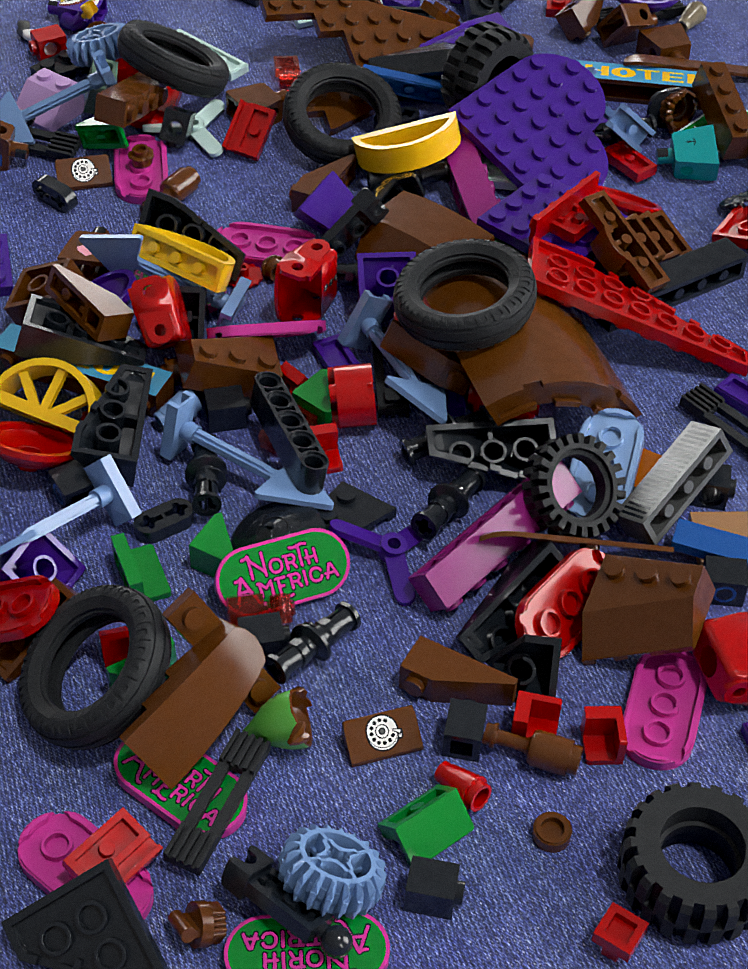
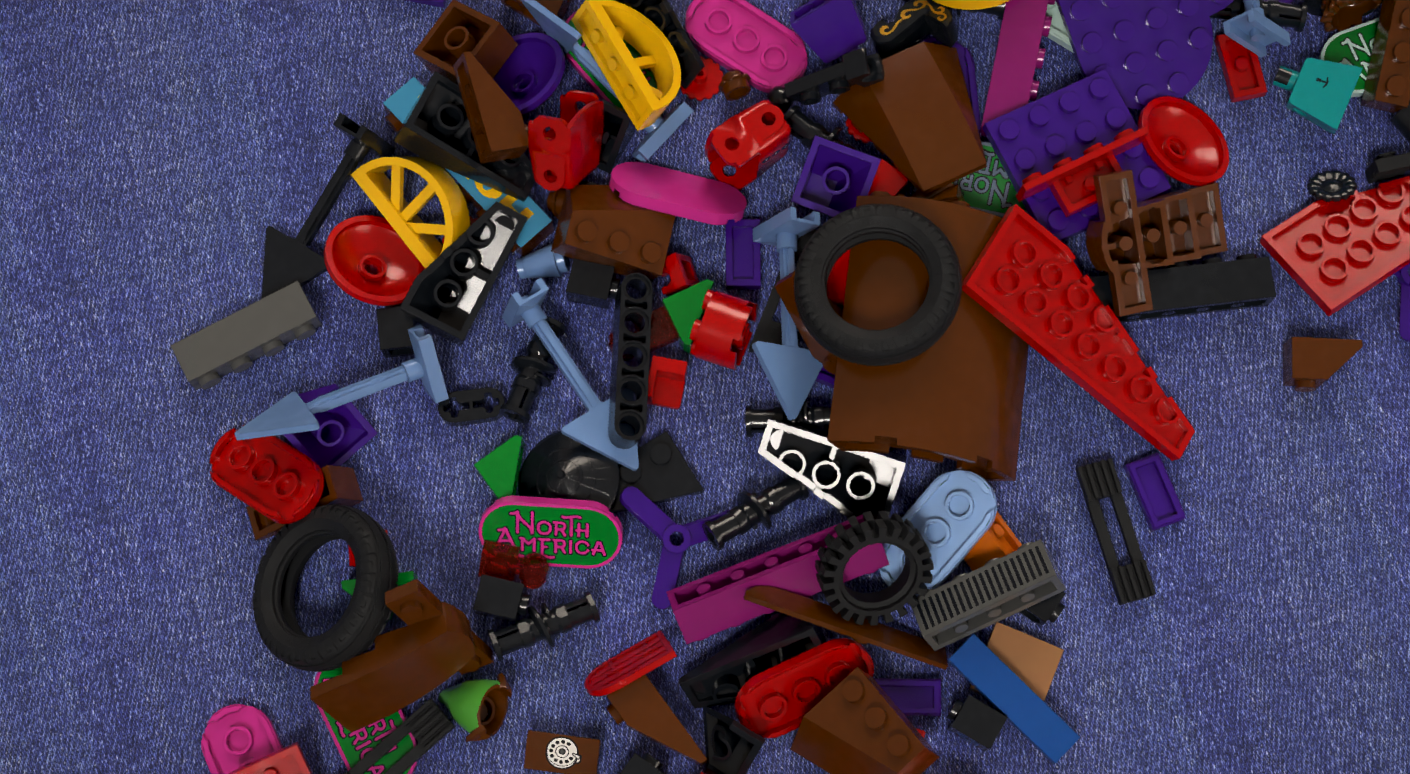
camera: 25 degrees right, 30 degrees up
(140, 568) = (424, 462): green panel -> none
(407, 640) = (629, 665): none -> red window

